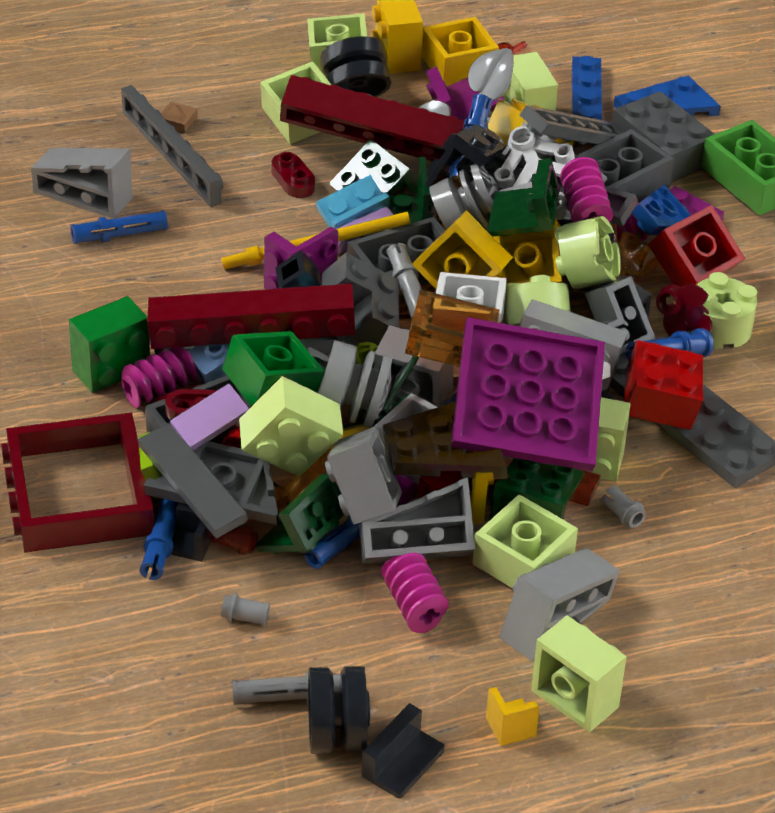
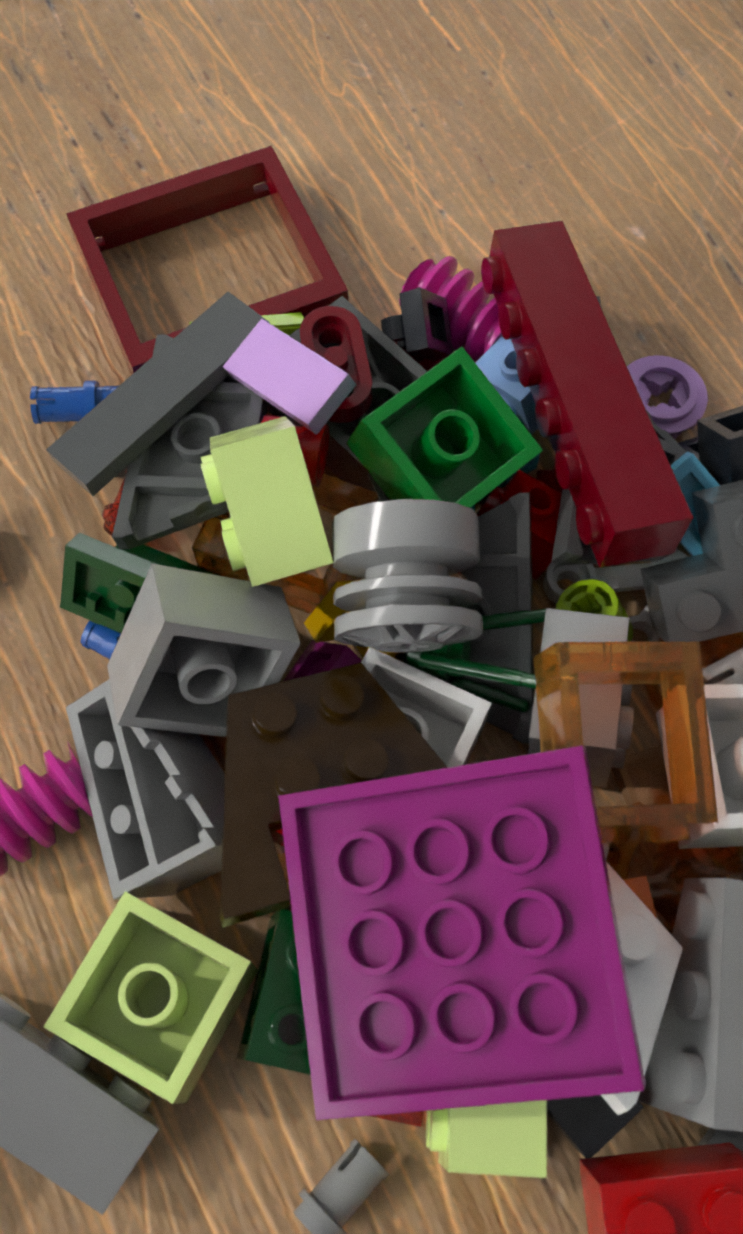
camera: 80 degrees right, 25 degrees up
(107, 341) = (487, 193): green brick -> none
(174, 379) = (422, 326): none -> black tile

